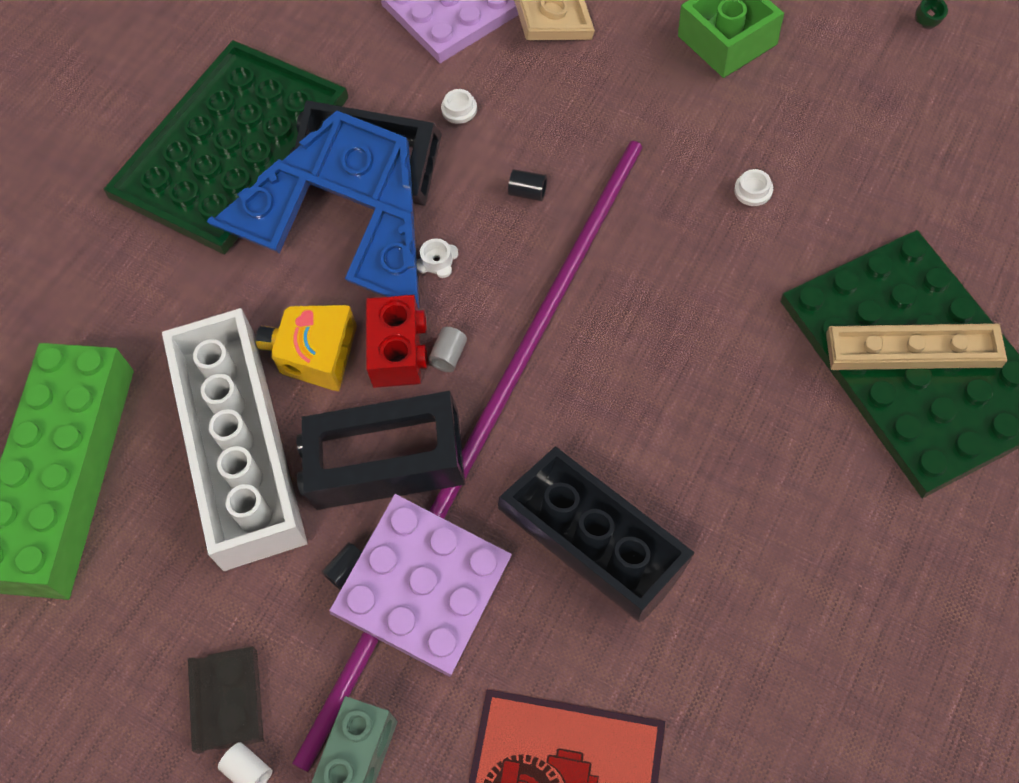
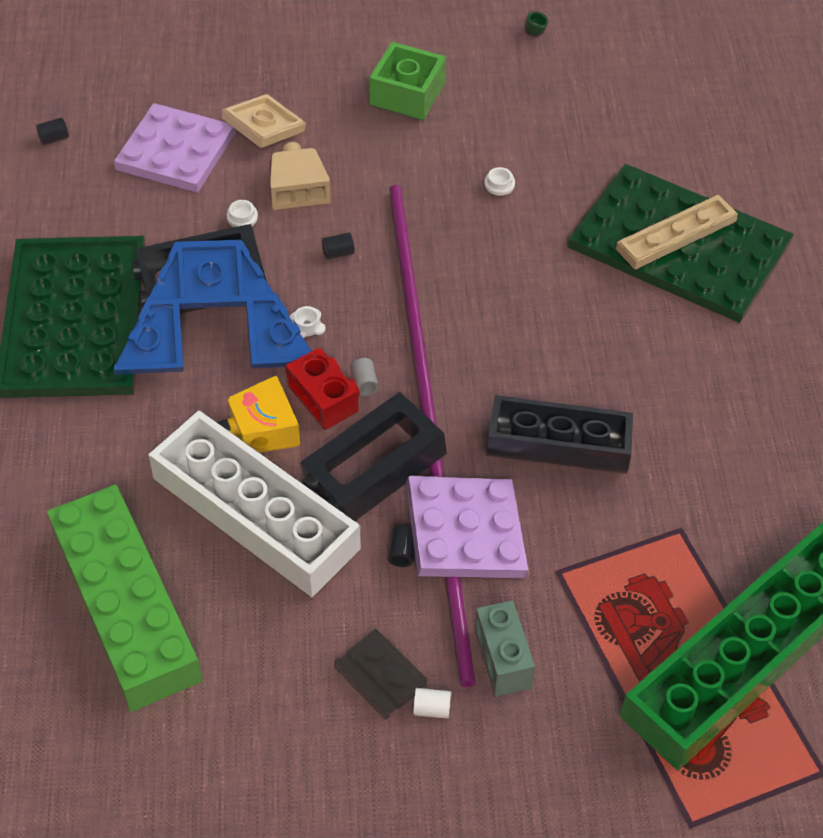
camera: 40 degrees left, 10 degrees down
(537, 89) = (298, 178): none -> tan torso

